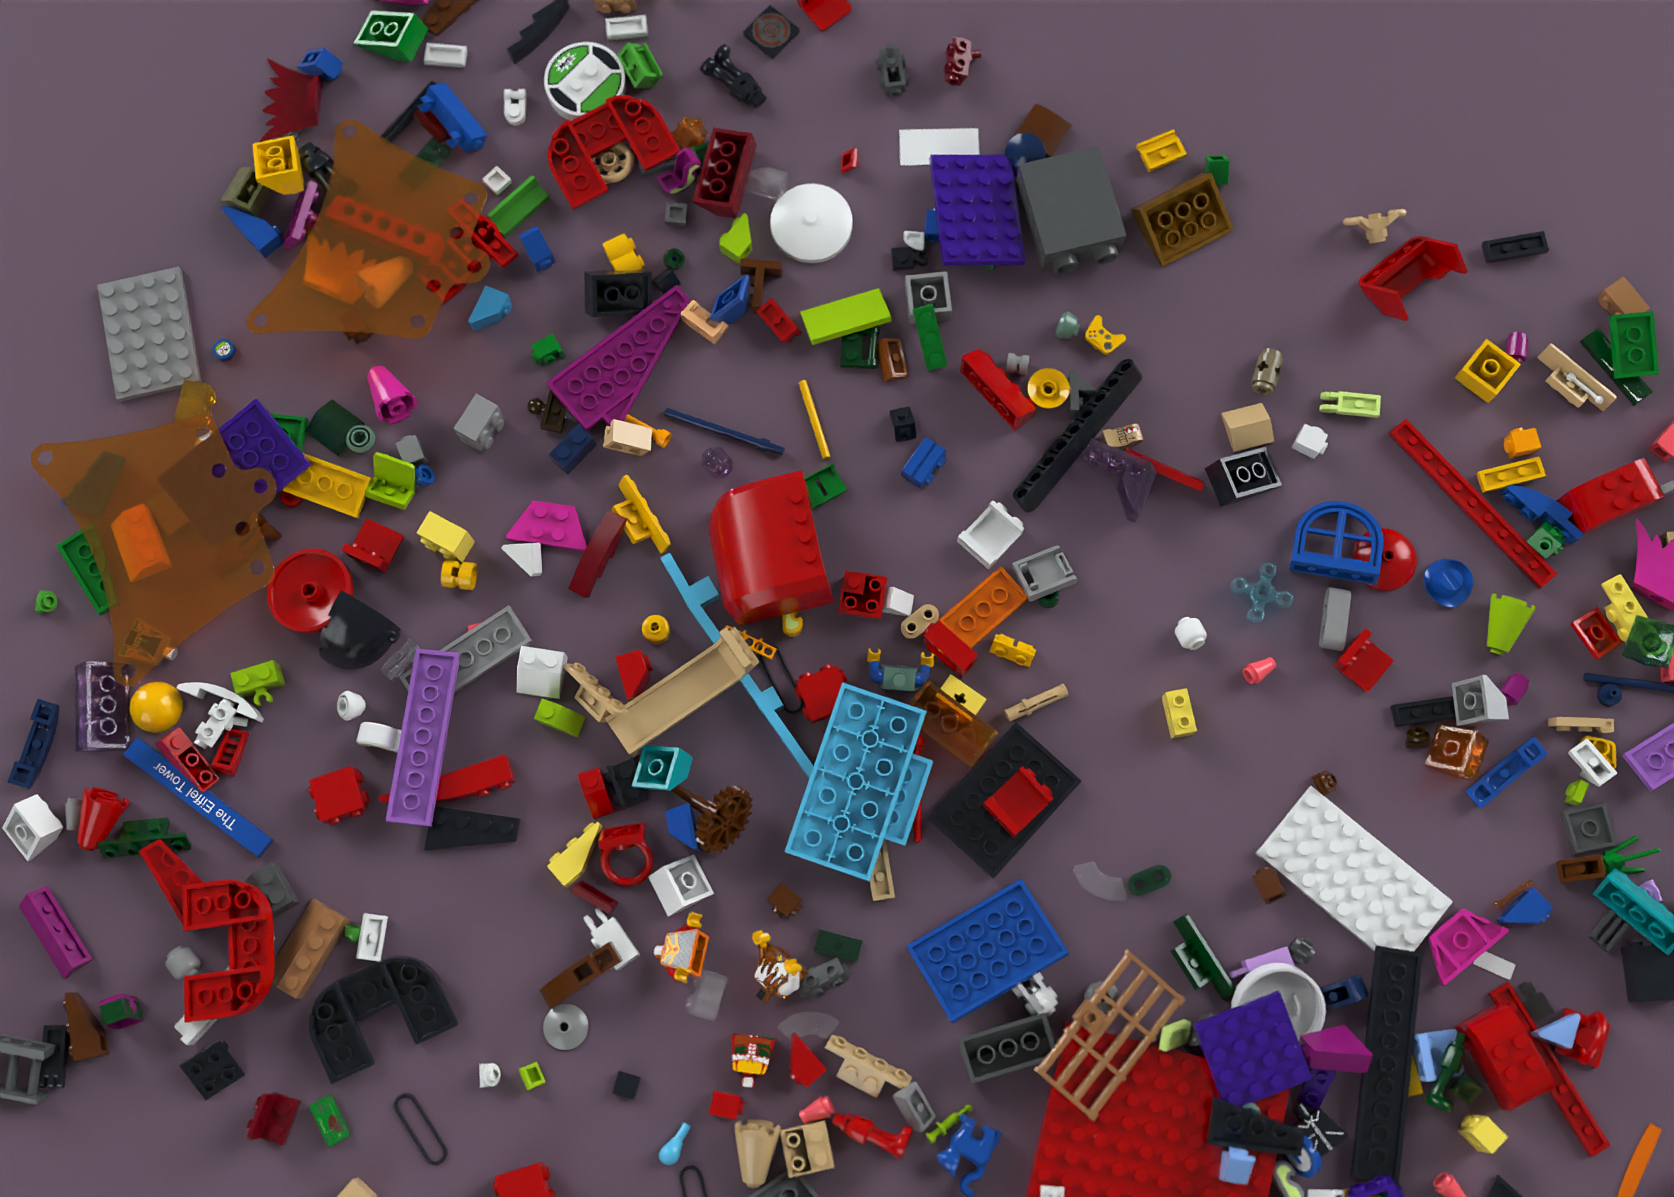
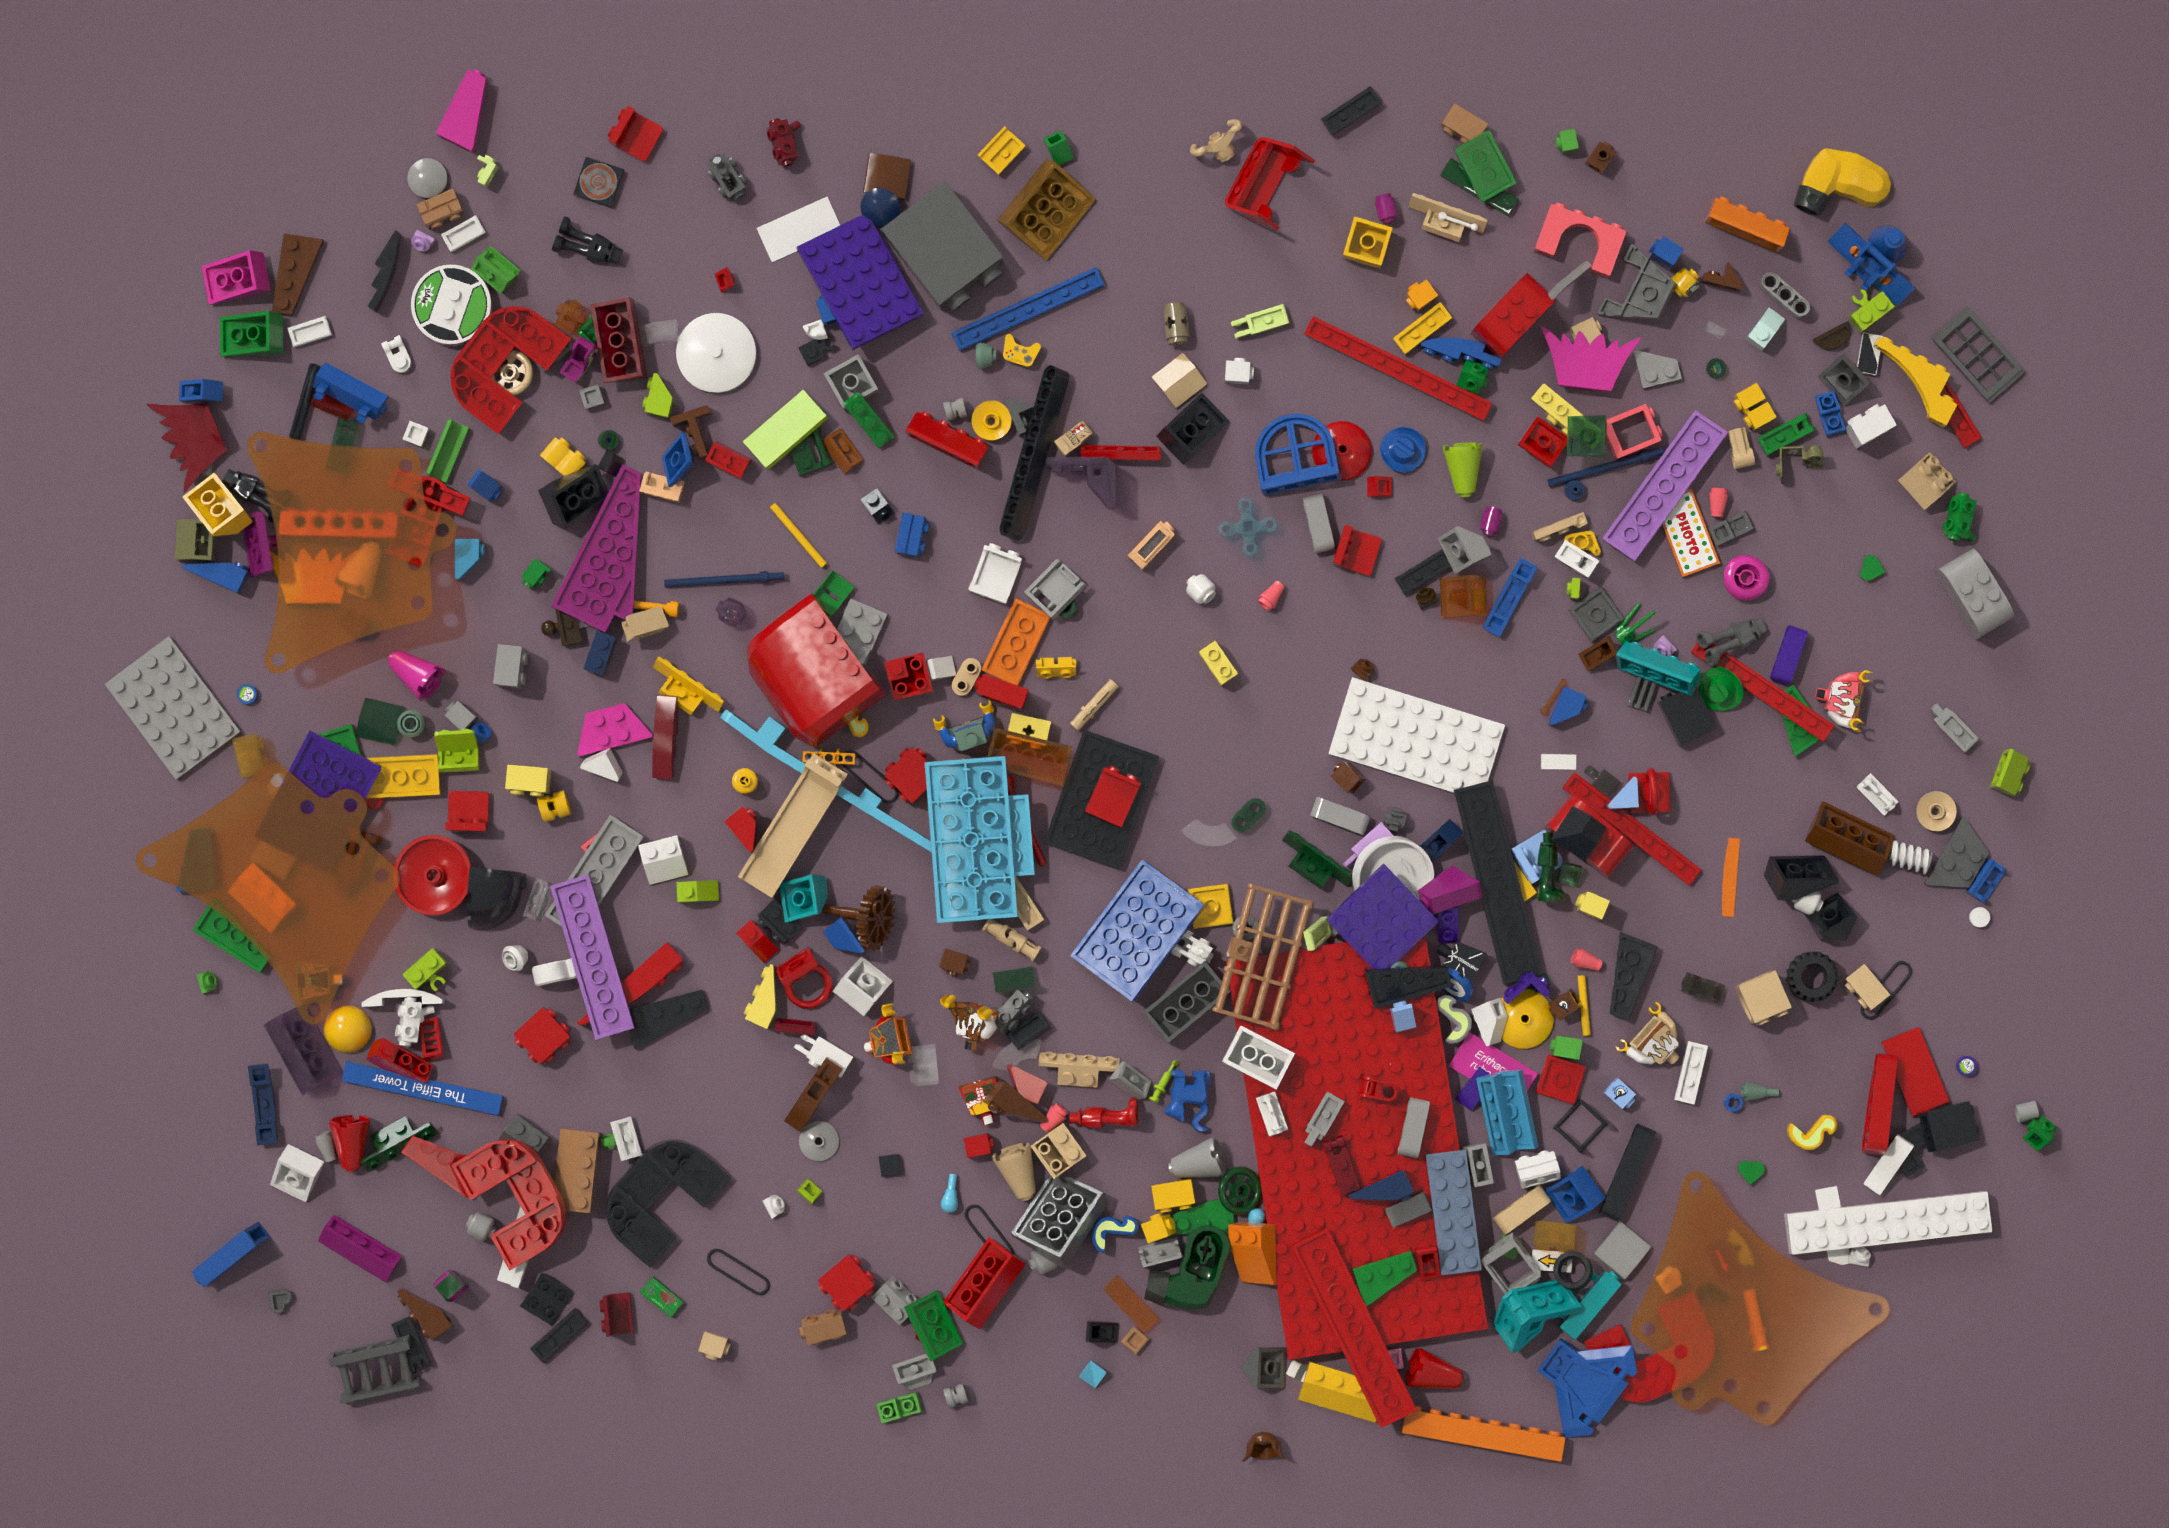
camera: 25 degrees left, 10 degrees up
(207, 1114) = (559, 1335): none -> black tile
(585, 18) = (422, 241): none -> lavender plate
(594, 696) = (719, 861): tan bracket -> none
(776, 1071) = (1007, 1101): none -> reddish brown slope
(830, 1006) = (1028, 1030): none -> black tile
(837, 531) = (861, 628): none -> light grey bracket
(856, 906) = (1015, 940): none -> tan piece
(1062, 1142) = (1258, 1057): none -> white brick
(1079, 963) = (1217, 906): none -> yellow tile
(1127, 302) = (1028, 309): none -> blue tile
(1159, 570) = (1152, 544): none -> light nougat window
(1244, 922) = (1340, 816): none -> light grey beam
(1409, 609) = (1379, 486): none -> red slope
(1462, 942) = (1524, 755): dark pink wing -> none
(1505, 1049) = (1579, 833): none -> black slope

